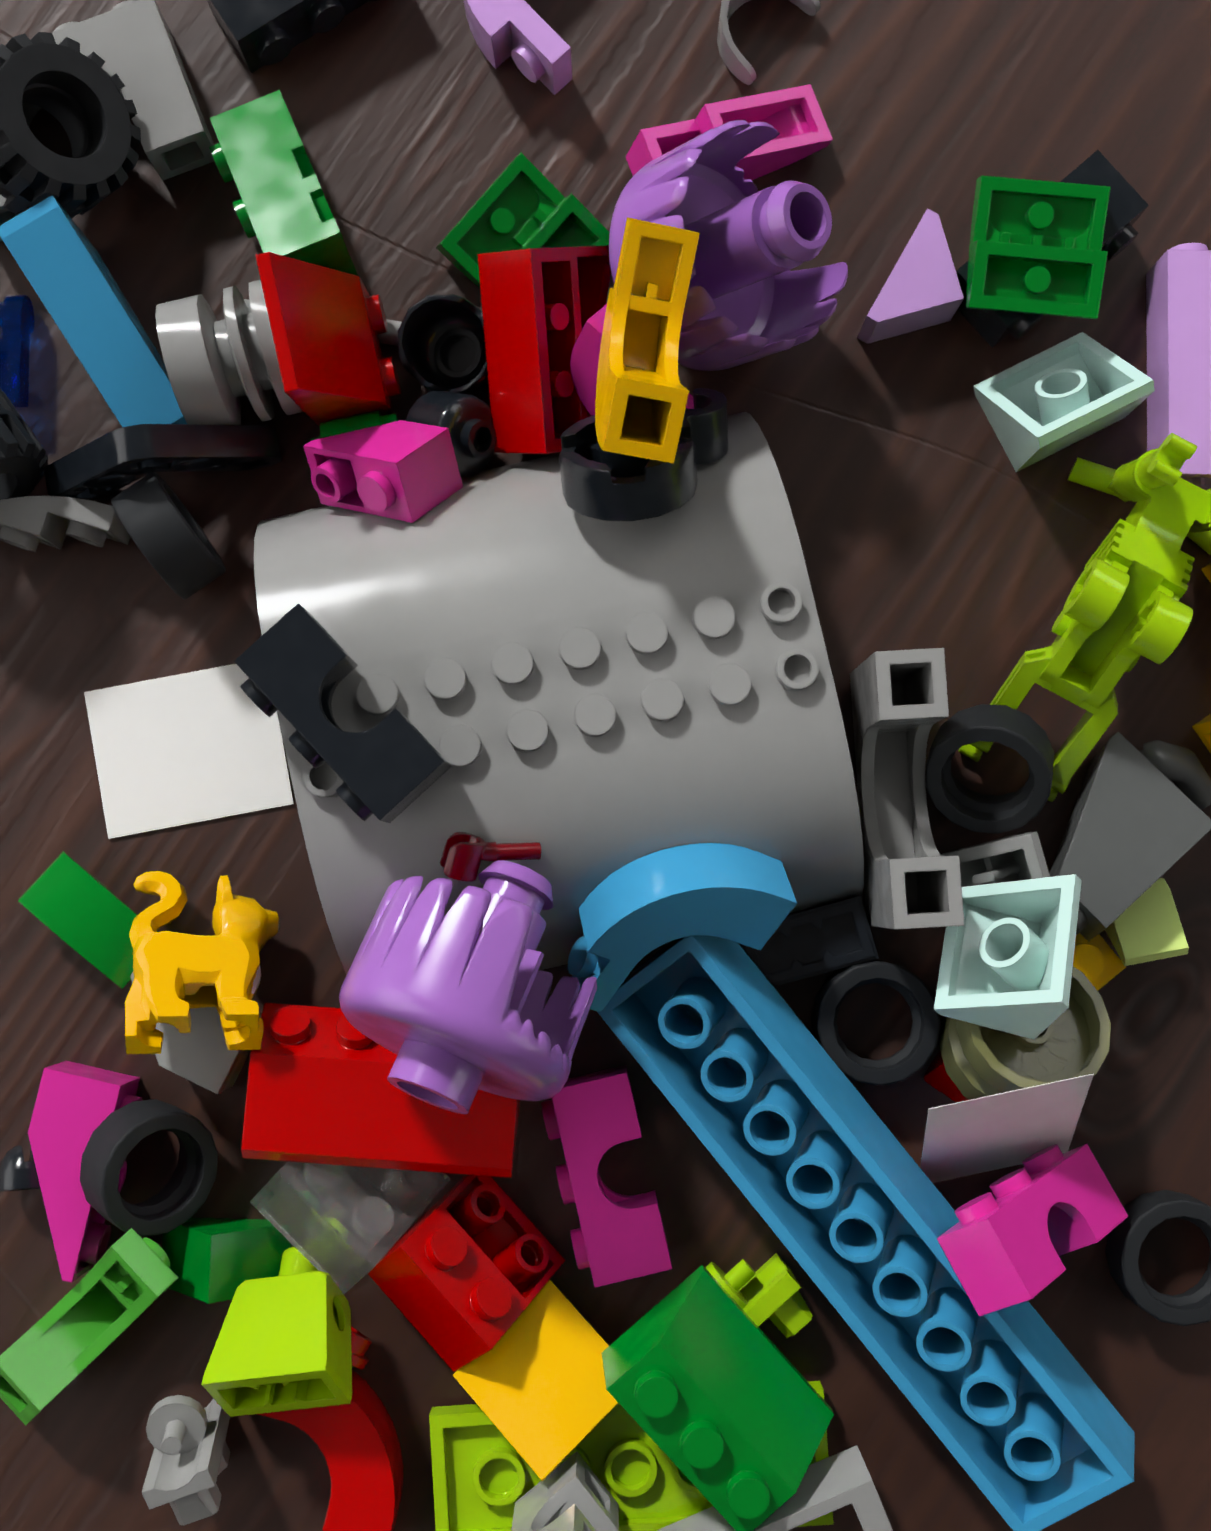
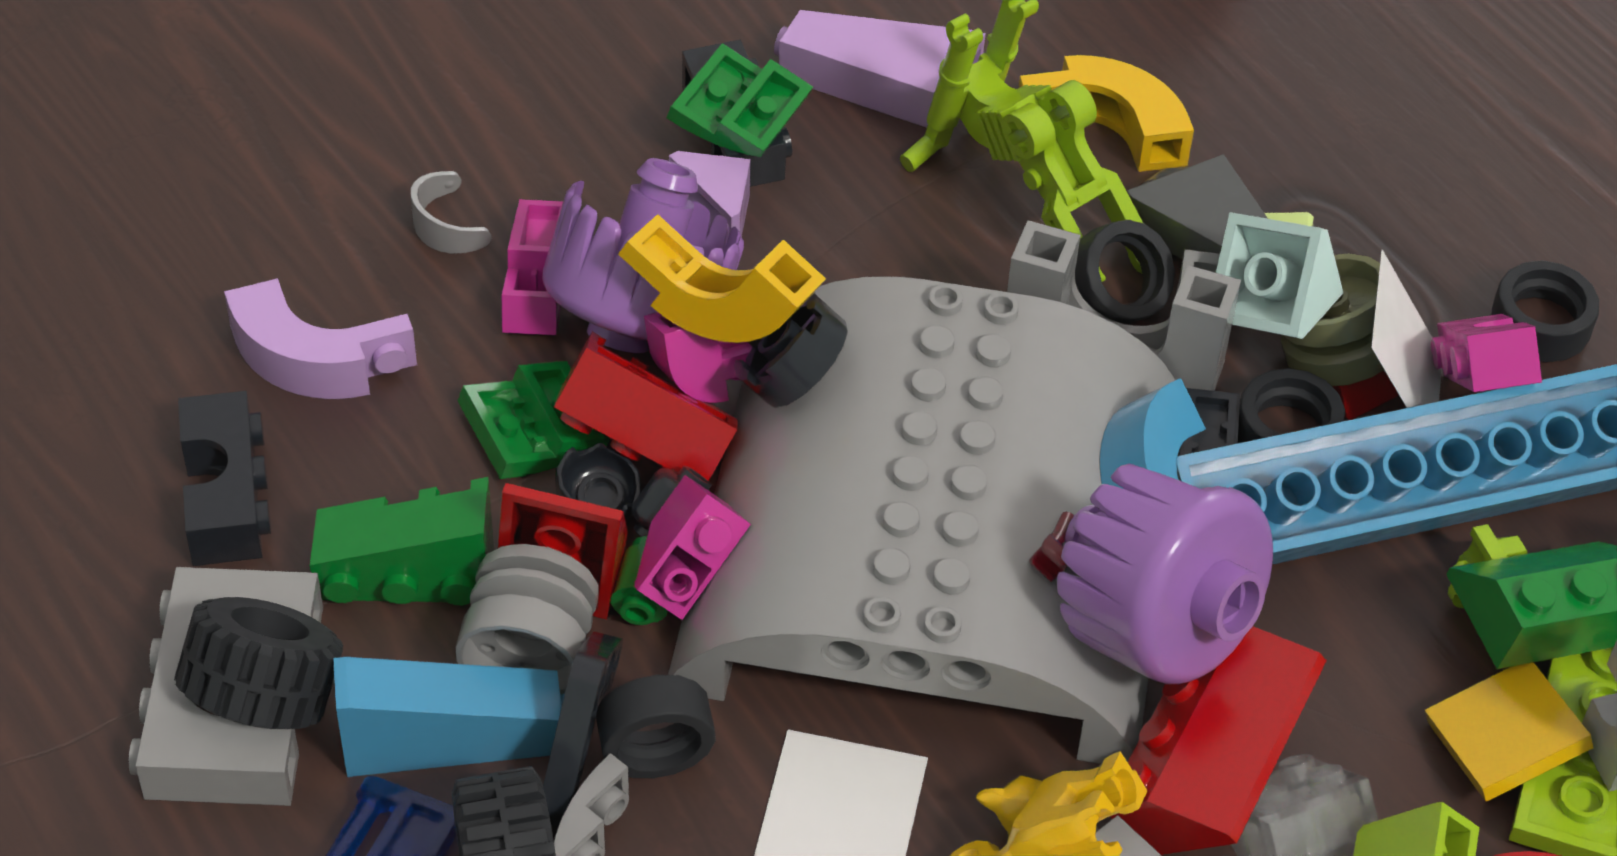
camera: 70 degrees left, 35 degrees down
(296, 672) = (864, 589): black arch -> none
(467, 1269) = (1404, 750): red slope -> none
(618, 1233) = (1393, 648): dark pink arch -> none
(1060, 398) = (852, 145): light aqua slope -> none

